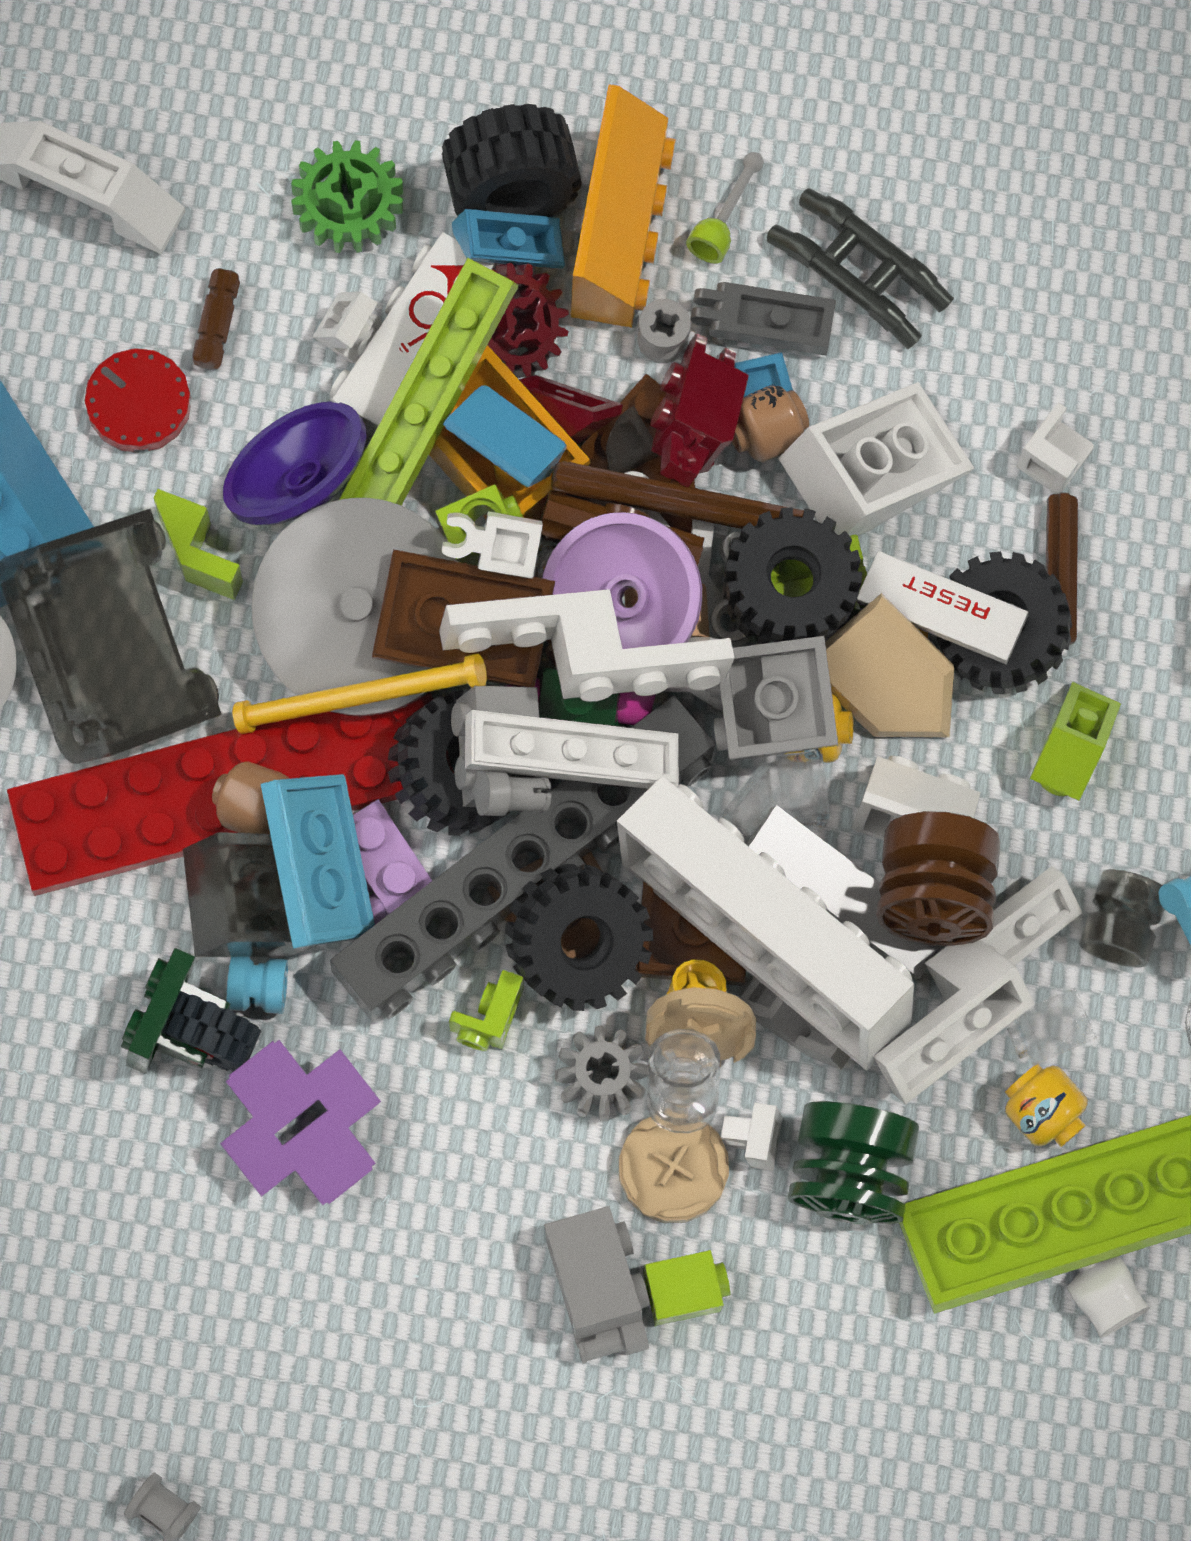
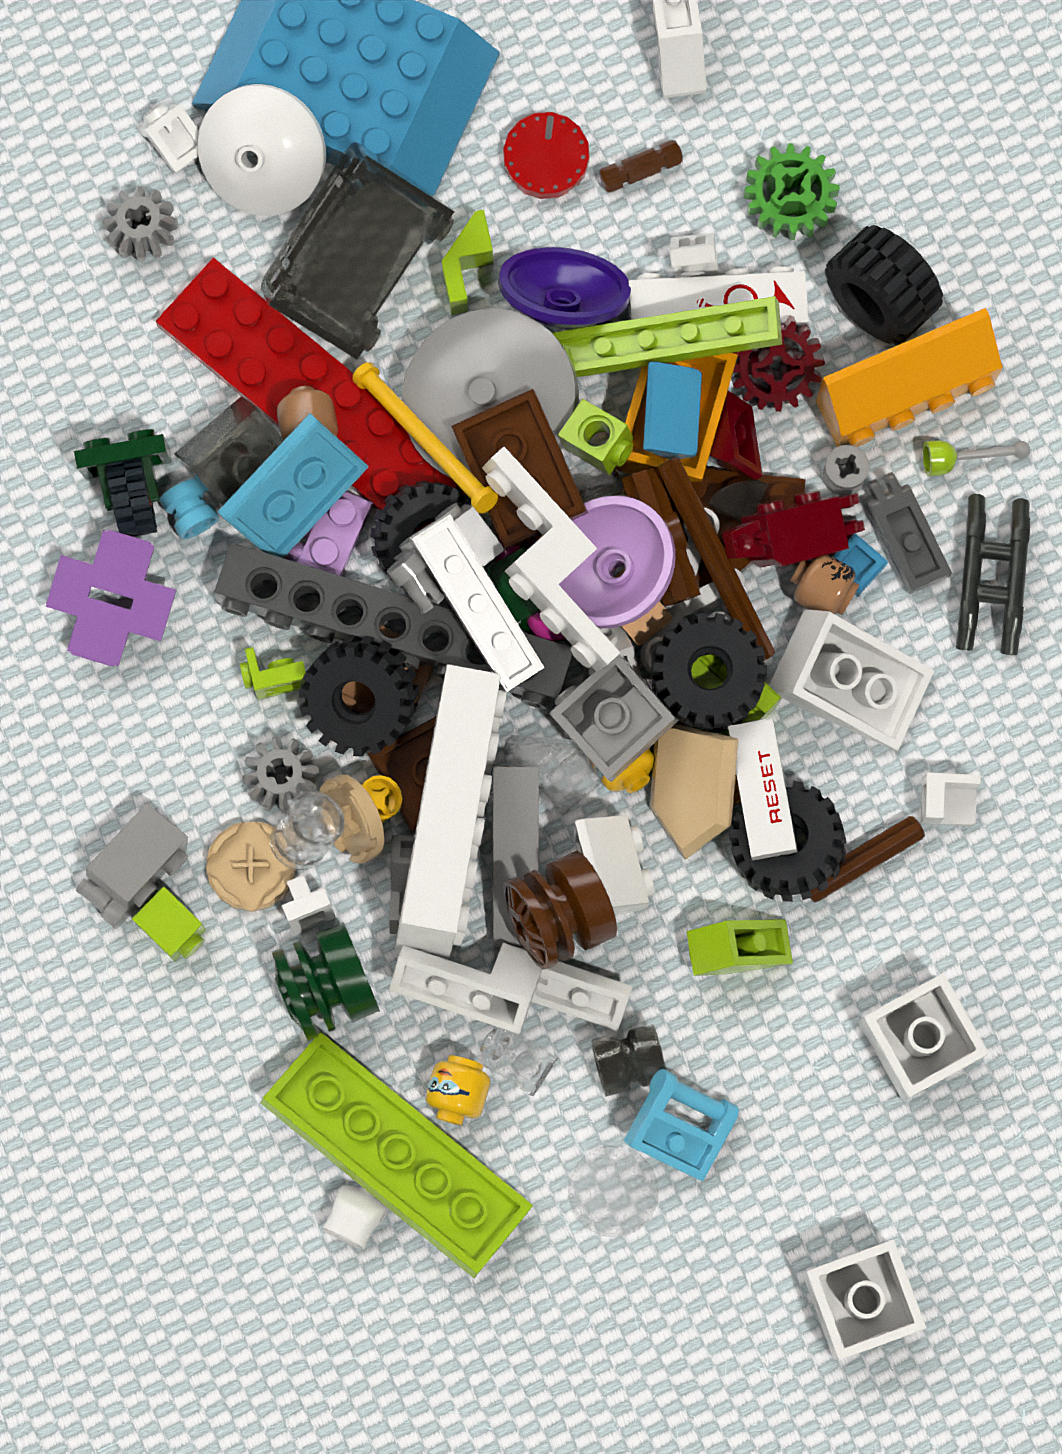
camera: 60 degrees right, 5 degrees up
(504, 544) = (585, 456): white plate -> none
(510, 238) = (833, 321): dark azure slope -> none

